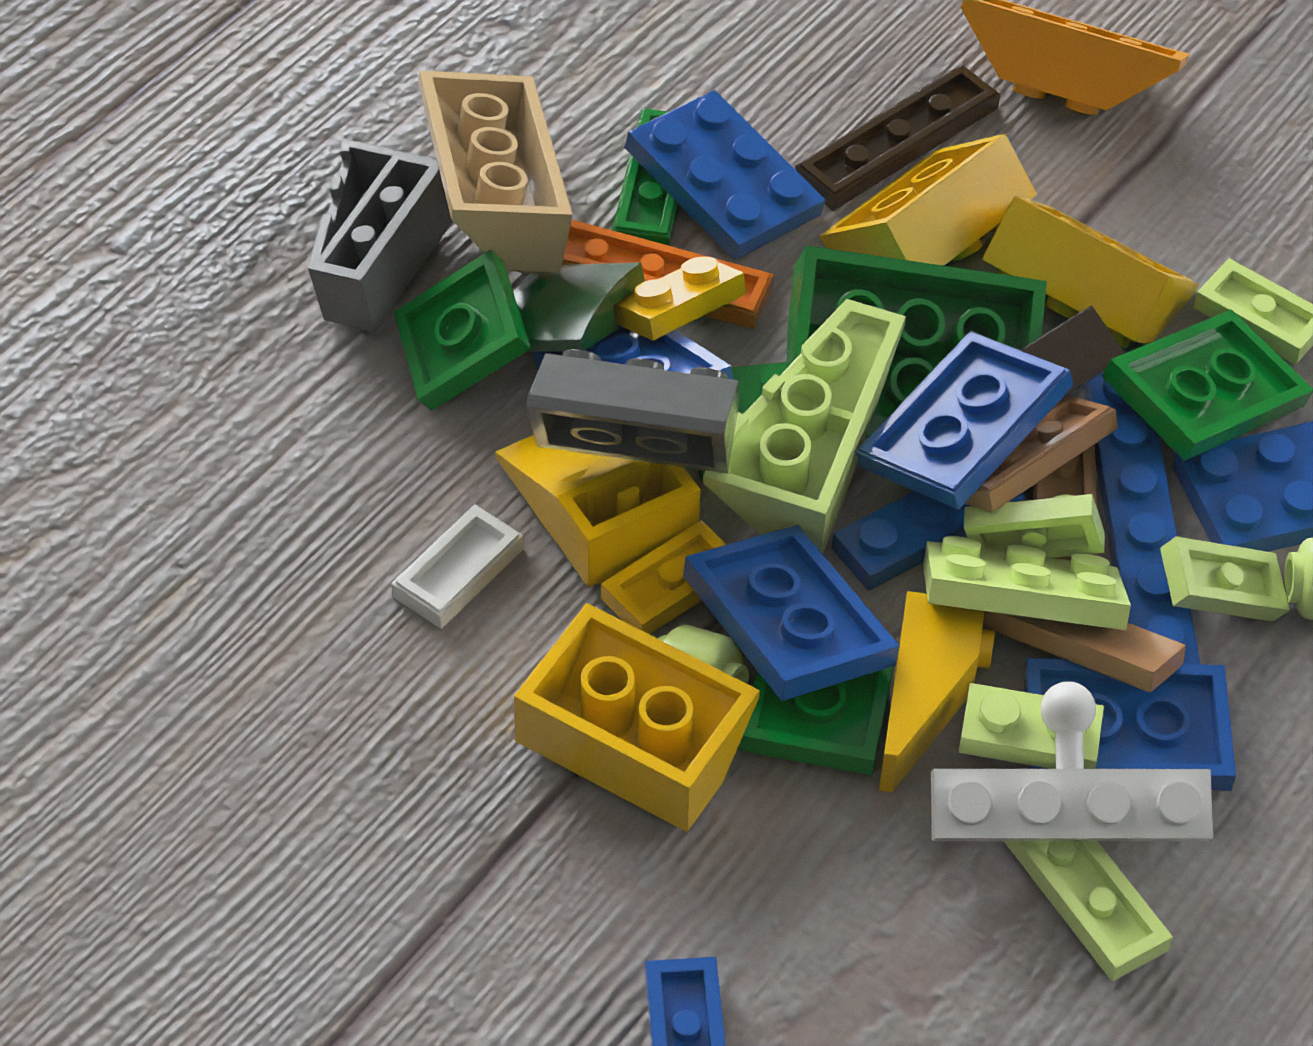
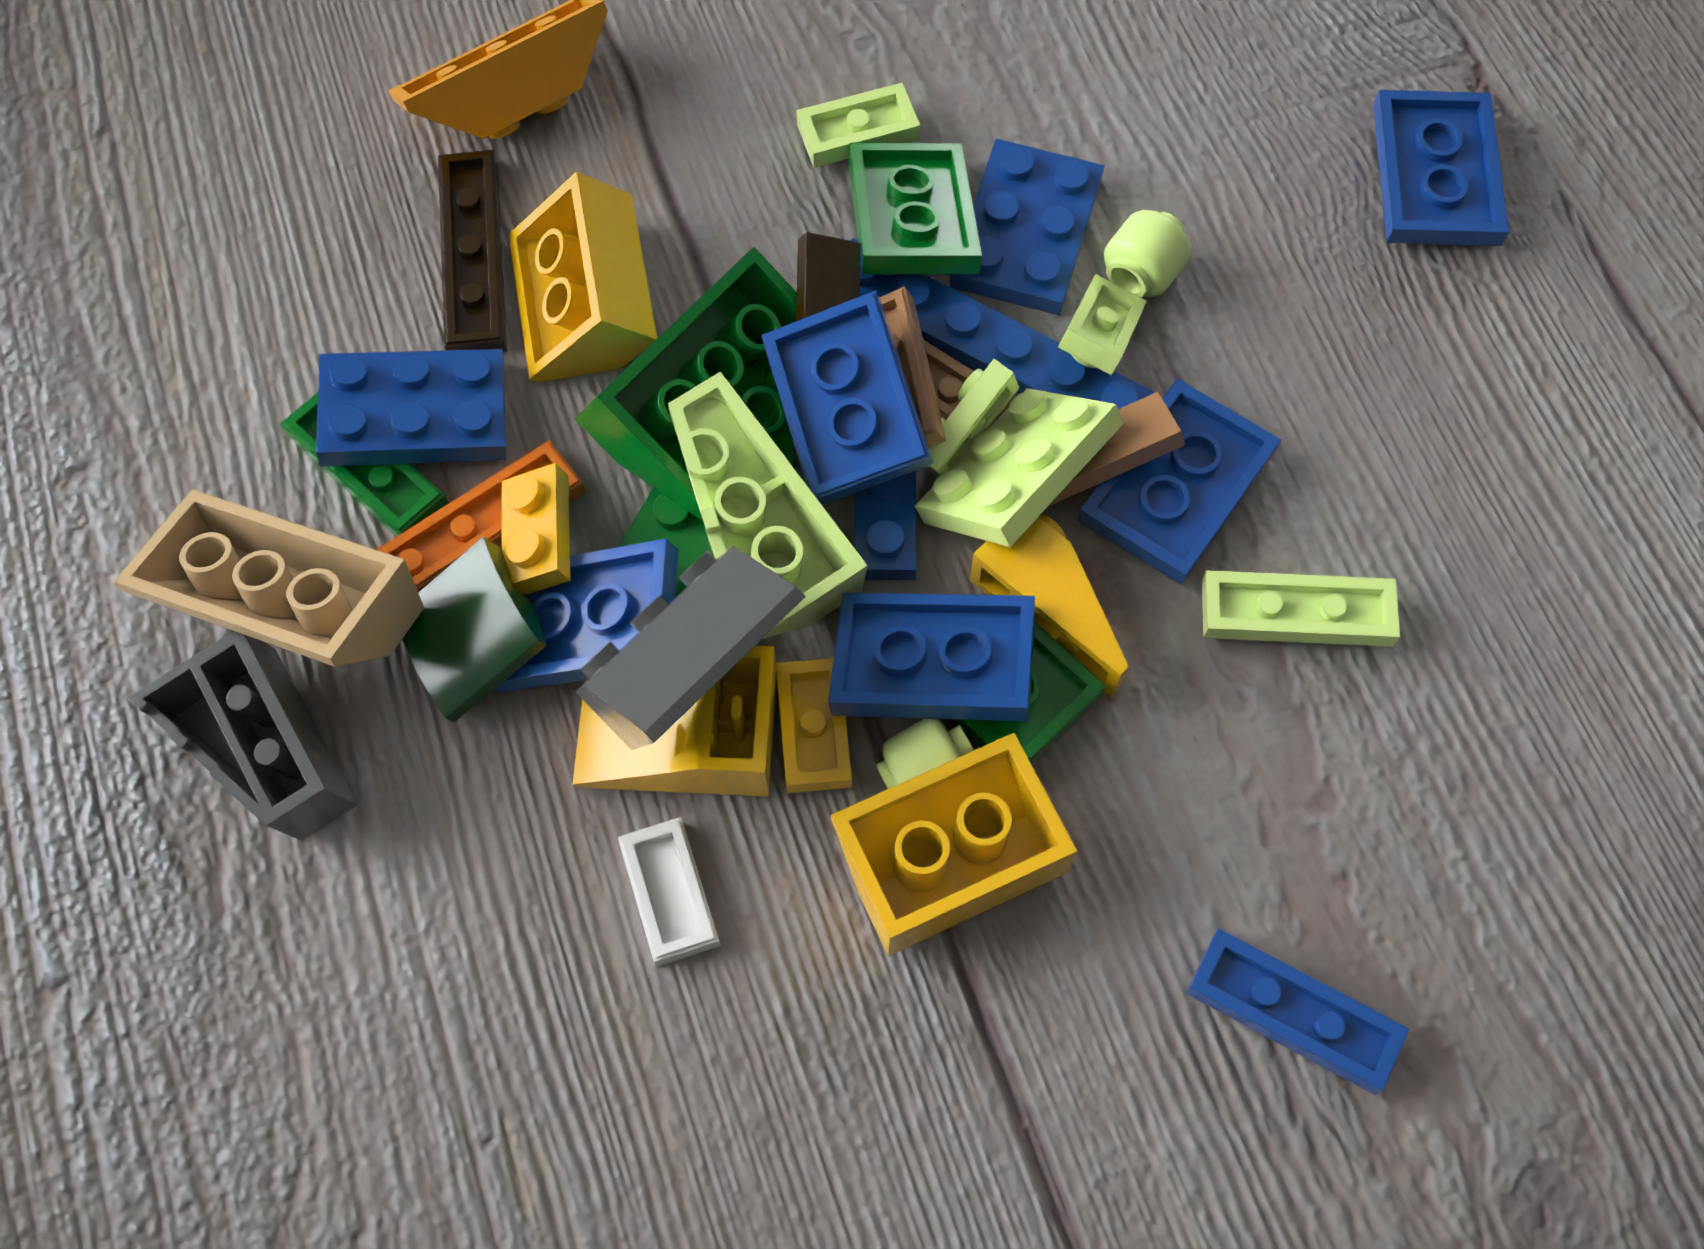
camera: 55 degrees left, 15 degrees up
(461, 330) = (426, 731): green plate -> none
(1011, 728) = (1157, 551): yellowish green plate -> none
(1071, 800) = (1250, 568): white plate -> none
(1088, 269) = (732, 211): yellow slope -> none

